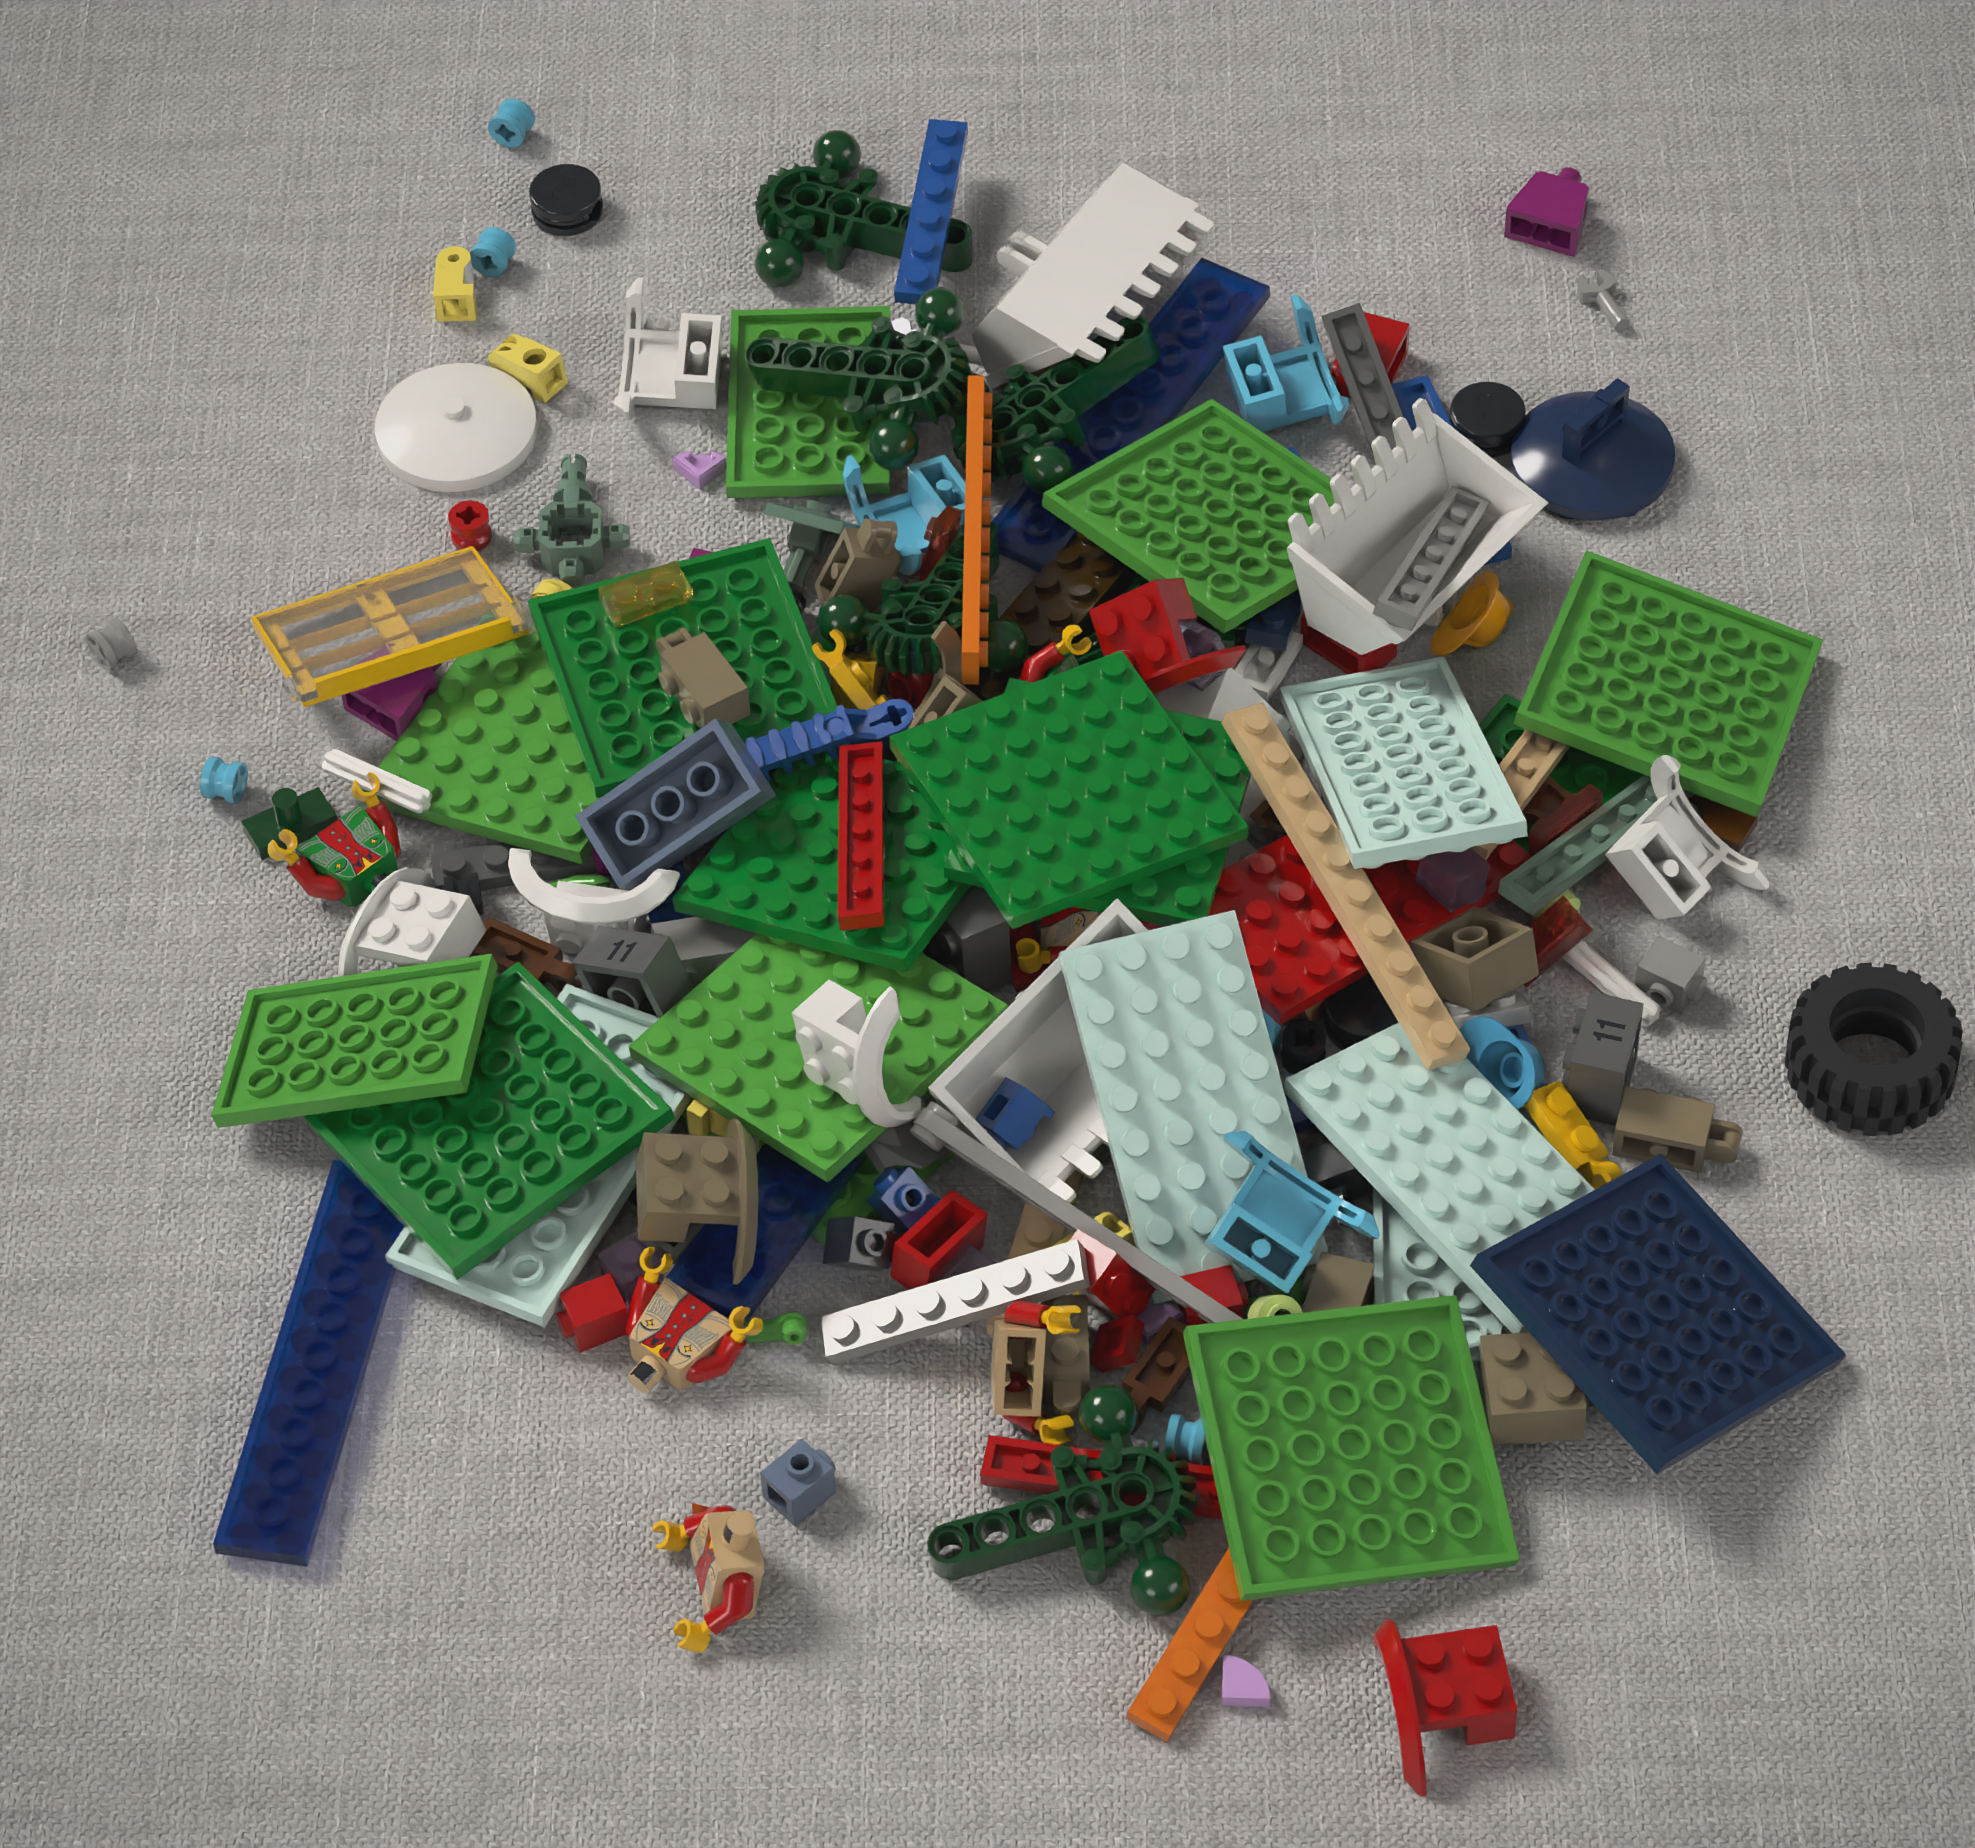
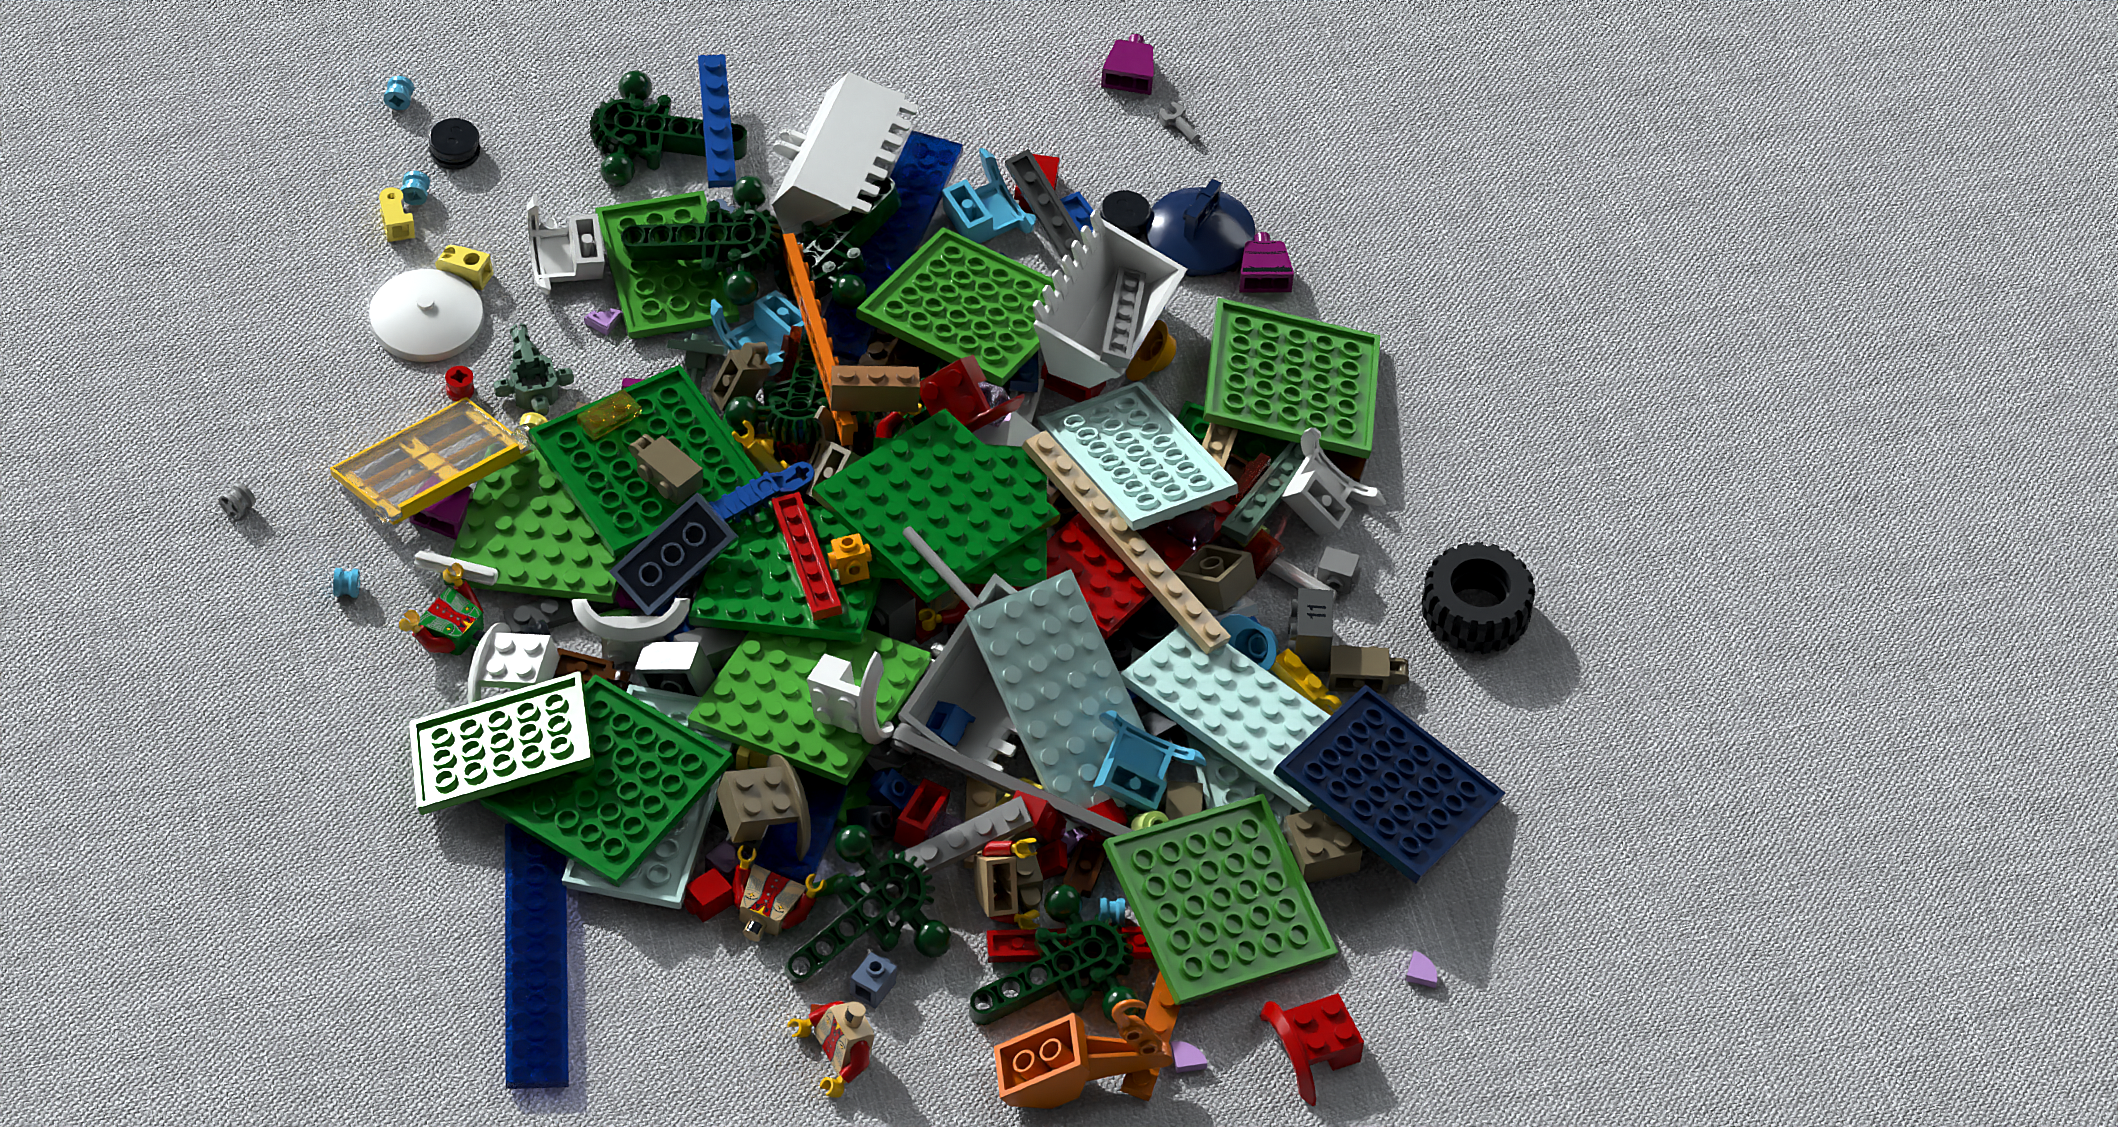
camera: 20 degrees left, 0 degrees up
(301, 814) = (402, 597): dark green tile -> none
(813, 1274) = (930, 937): none -> dark green piece
(918, 838) = (850, 552): none -> light orange brick
(1019, 606) = (874, 388): none -> medium nougat brick
(1028, 1652) = (1058, 1058): none -> orange slope
(1042, 880) = (941, 568): none -> light grey bar
(1644, 1611) = (1422, 971): none -> lavender tile
(1674, 517) = (1265, 266): none -> magenta torso

